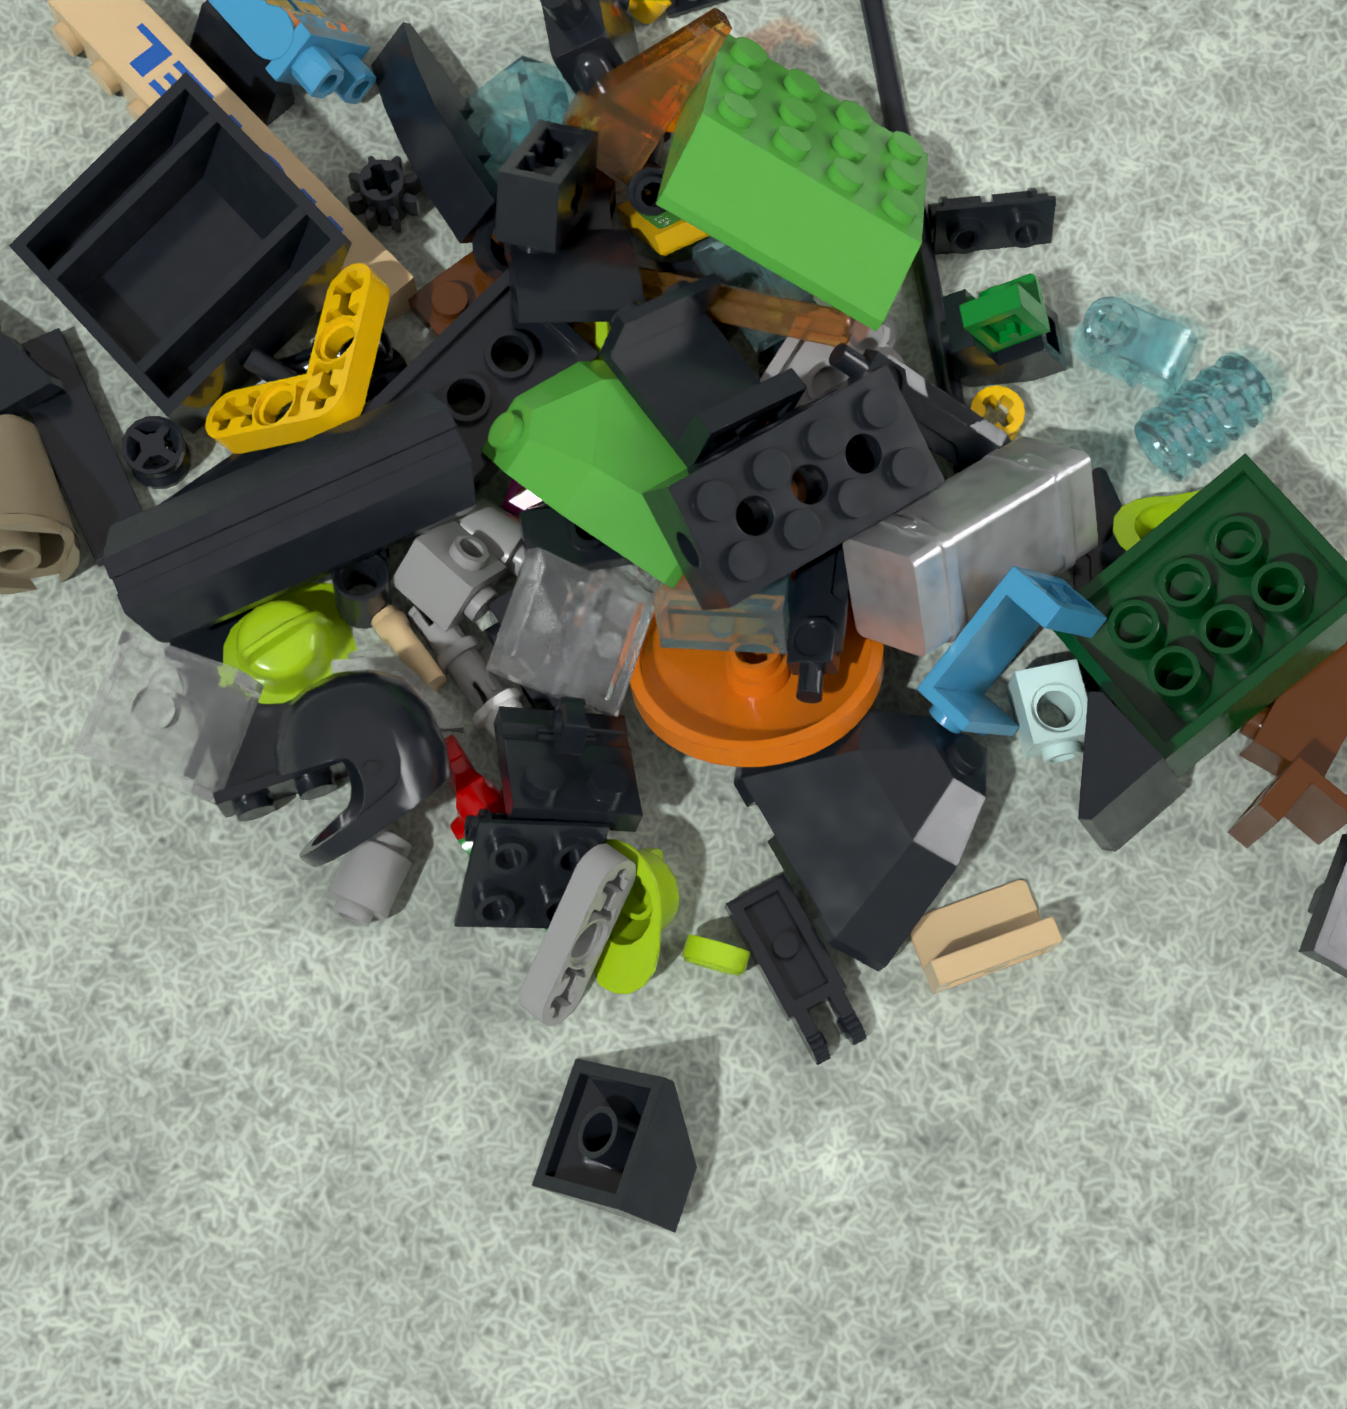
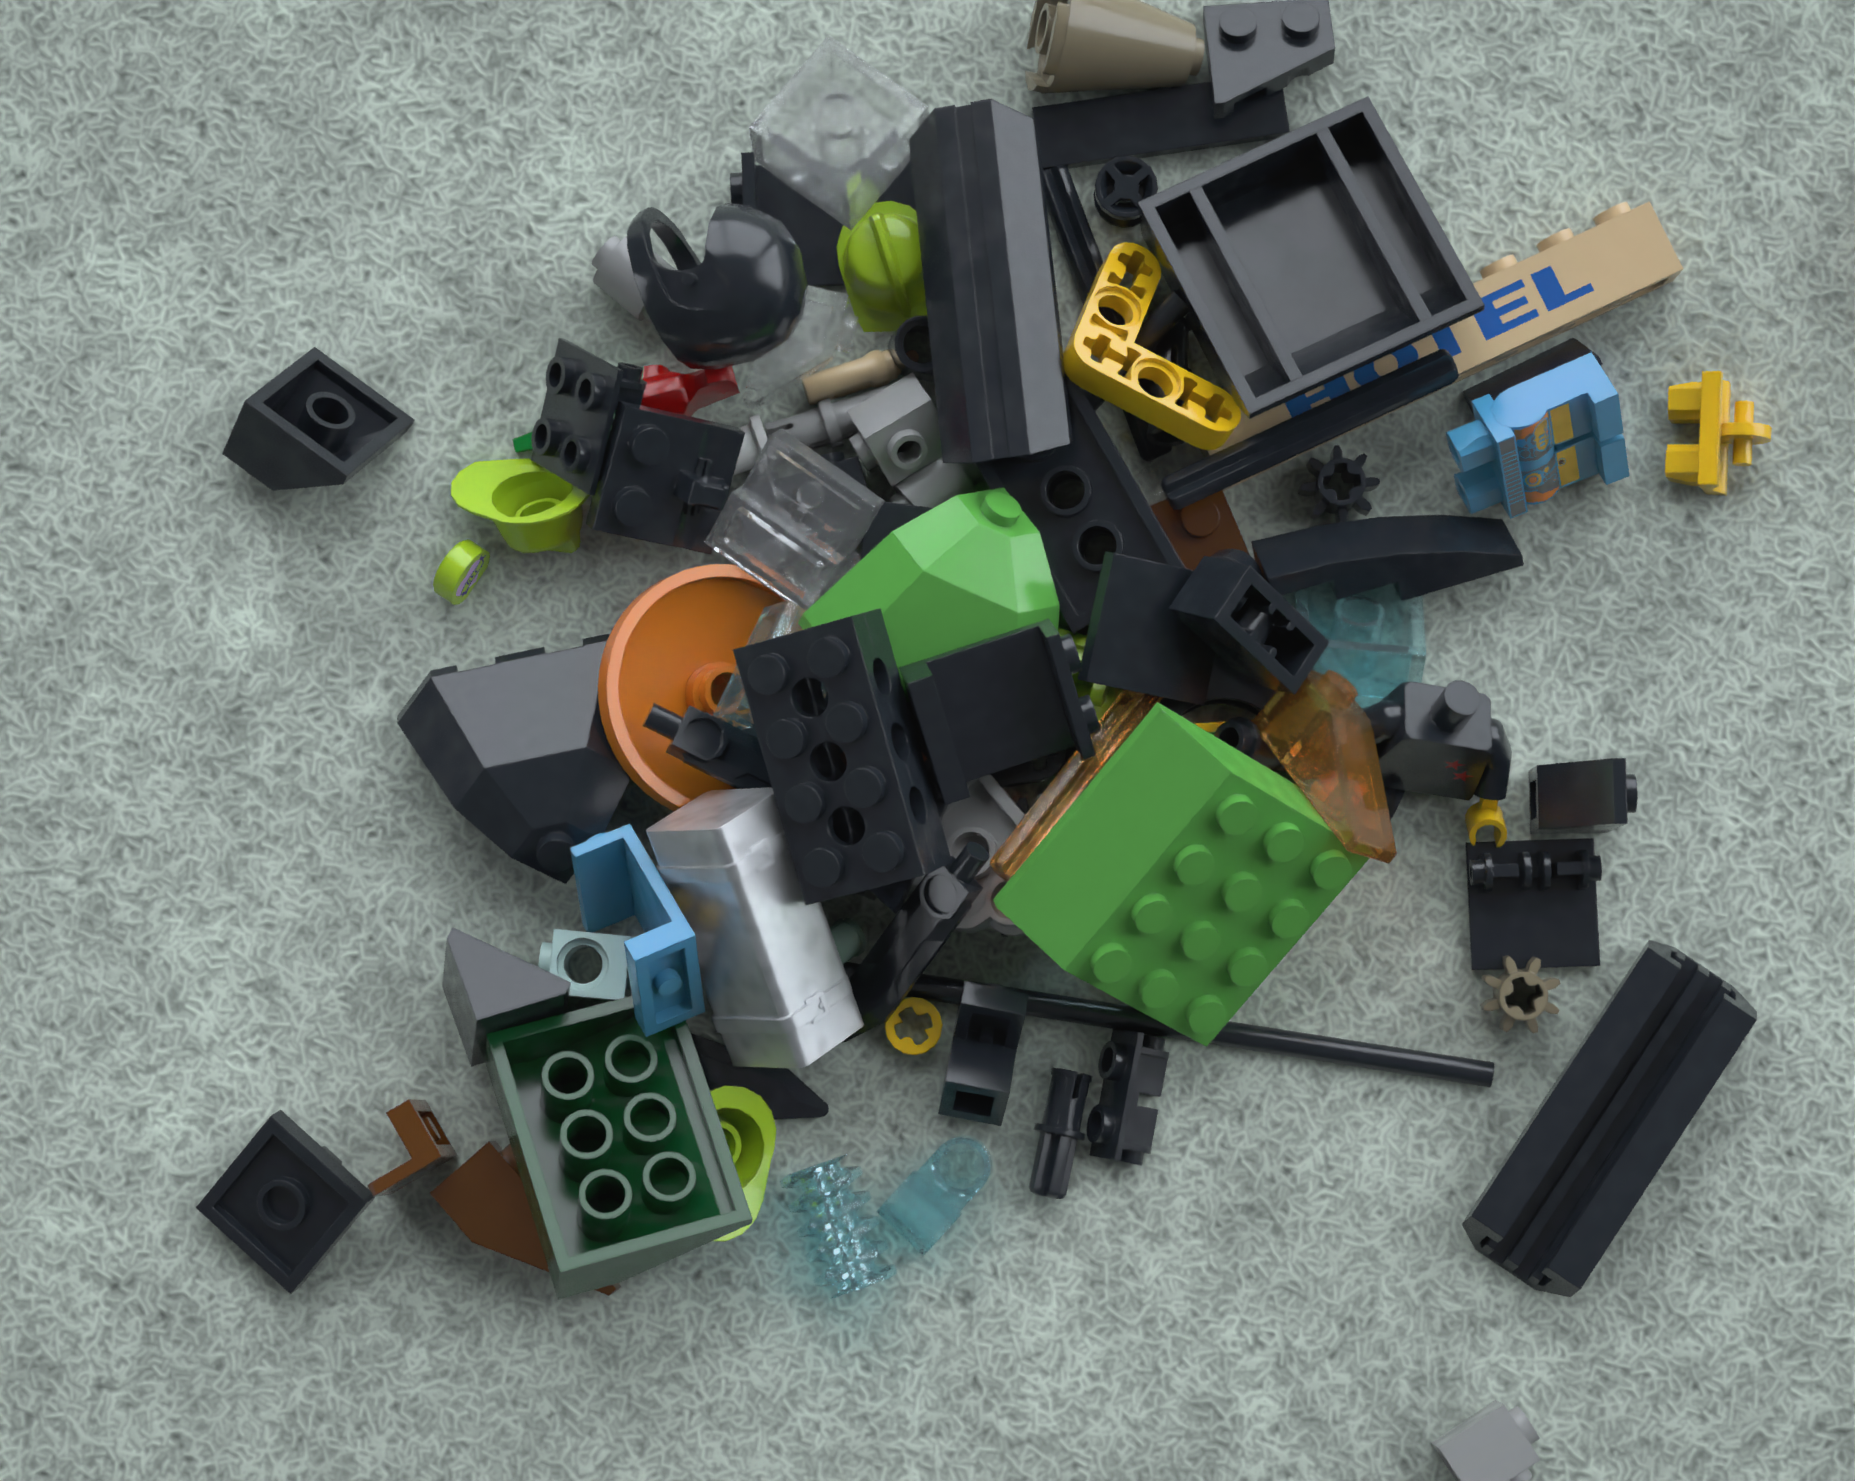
camera: 115 degrees right, 10 degrees up
(340, 207) = (1309, 429): none -> black axle
(577, 934) = (512, 445): light grey beam -> none
(793, 962) = (431, 639): black hinge -> none
(982, 936) = (399, 827): tan panel -> none
(1007, 313) = (990, 1056): green bracket -> none
(1045, 263) = (1059, 1133): none -> black axle

